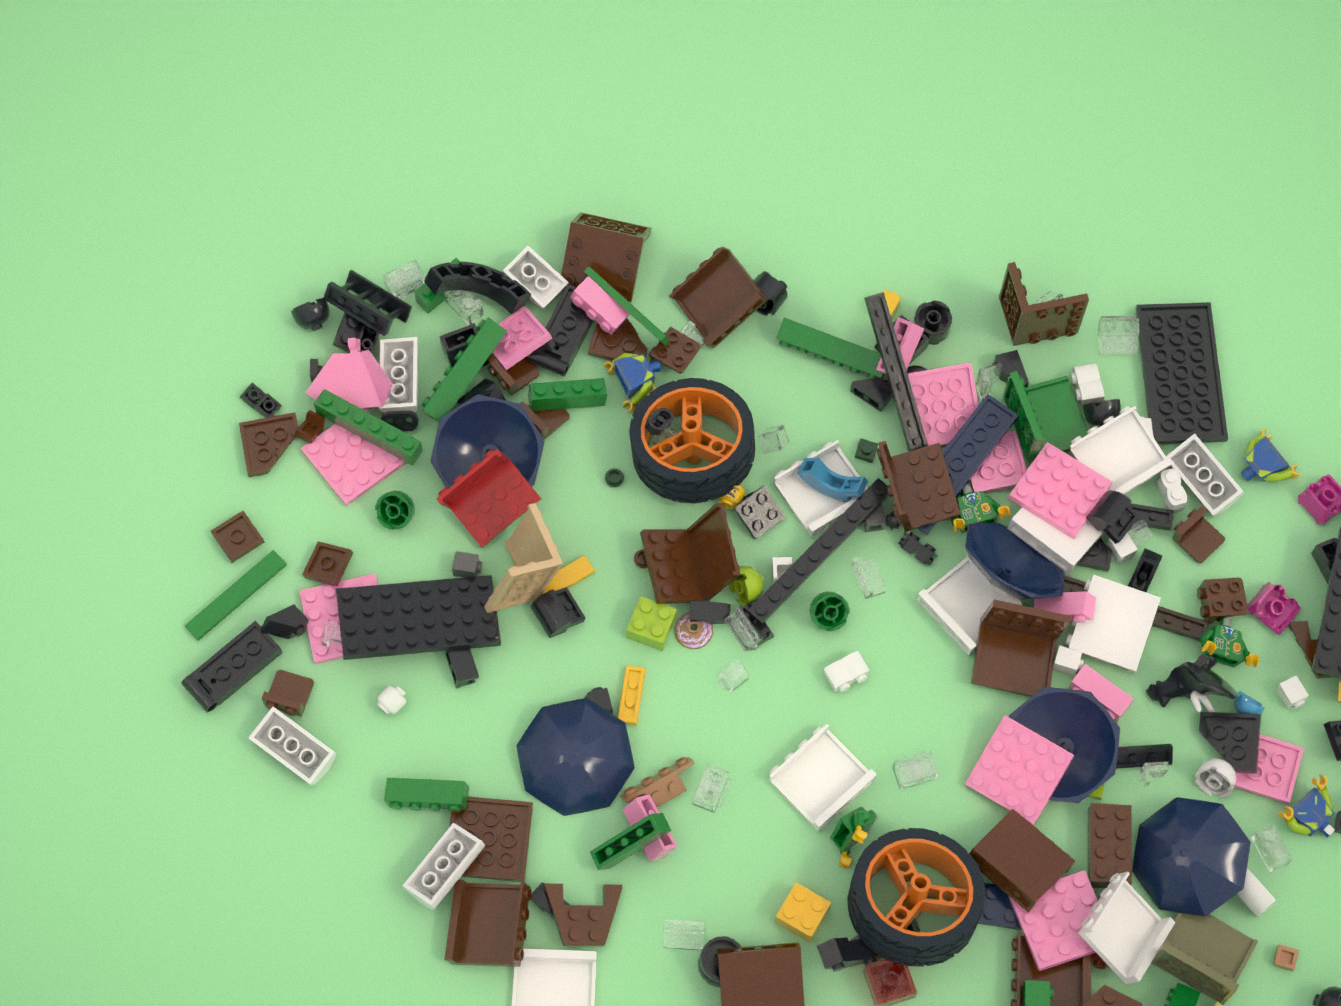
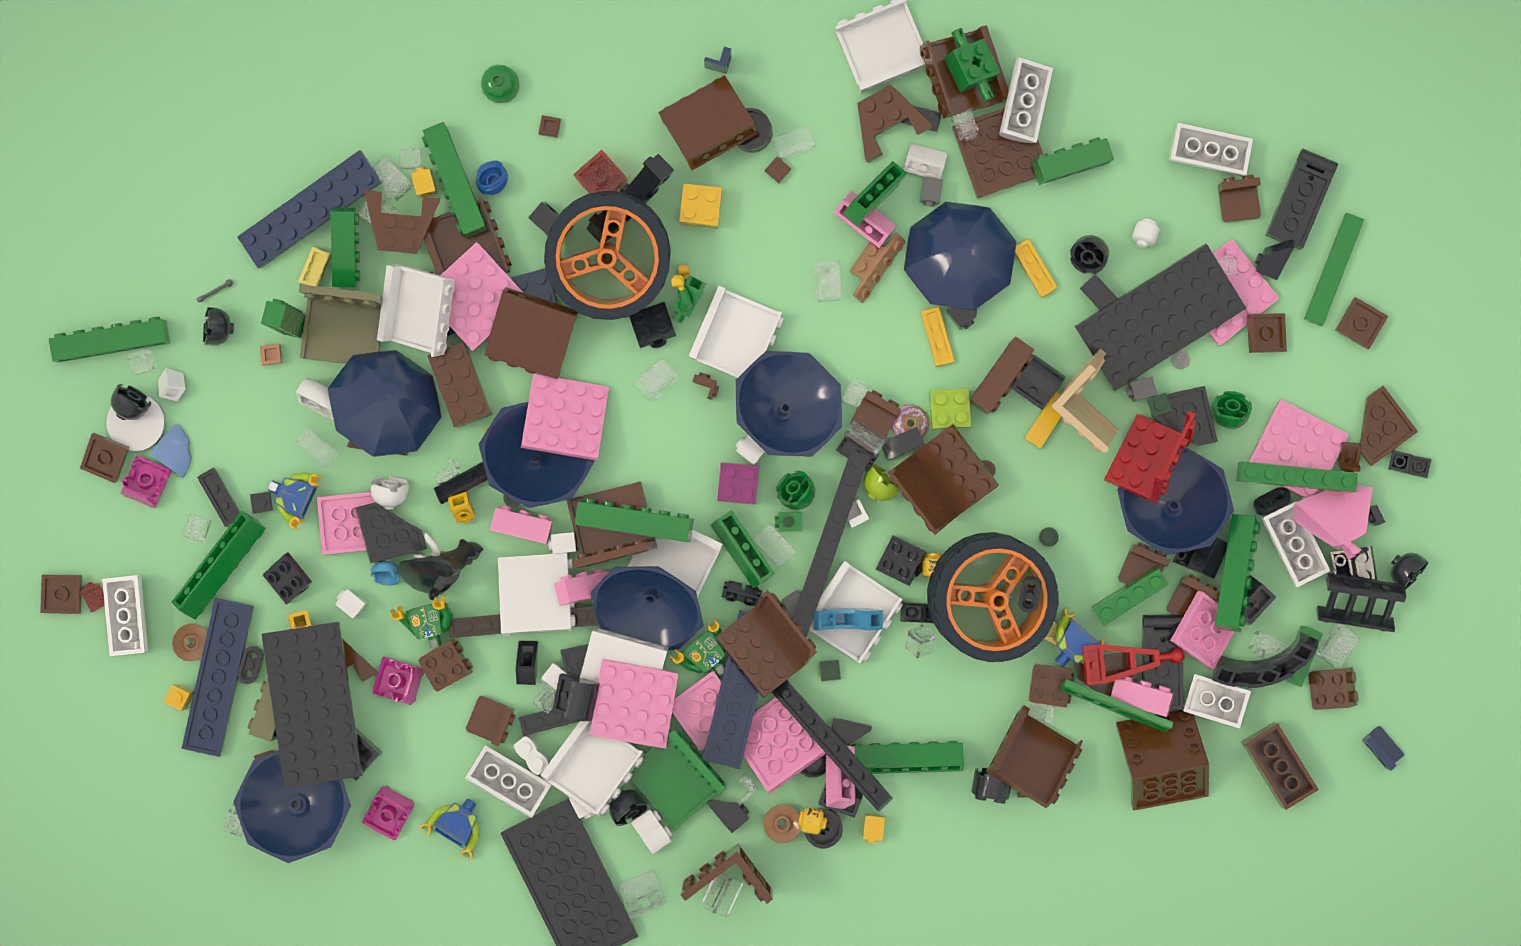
camera: 160 degrees right, 20 degrees up
(410, 187) = (1383, 747): none -> dark blue panel
(416, 575) = (1181, 359): none -> clear tile
(427, 247) = (1333, 689): none -> reddish brown bracket
(437, 527) = (1197, 402): none -> black plate
(453, 701) = (1089, 254): none -> black cylinder
(458, 542) = (1159, 404): none -> dark green plate
(478, 923) = (972, 65): none -> green brick
(507, 207) = (1279, 765): none -> reddish brown brick
(509, 716) = (1035, 268): none -> yellow tile
(512, 870) = (965, 125): none -> clear brick
(565, 860) = (925, 161): none -> white panel
(573, 828) = (931, 191): none -> dark grey brick
(590, 628) = (1001, 375): none -> reddish brown brick
(627, 348) = (1095, 667): none -> red plate
(711, 916) = (777, 170): none -> reddish brown tile
(721, 648) = (877, 413): none -> reddish brown bracket
(765, 465) = (915, 613): none -> black slope
(801, 686) = (788, 403): none -> dark blue piece
(846, 582) = (797, 526): none -> green brick
(869, 747) = (704, 380): none -> reddish brown bracket
(880, 642) = (738, 483): none -> magenta brick
(897, 814) = (652, 326): none -> black plate
(901, 582) = (742, 549): none -> green brick
(941, 323) = (812, 821): none -> yellow head
(959, 969) = (544, 217): none -> black hinge
(970, 335) = (775, 831): none -> medium nougat dish
(993, 645) = (634, 521): none -> green brick
(1152, 727) = (462, 512): none -> yellow brick
(1264, 965) = (283, 318): none -> green brick

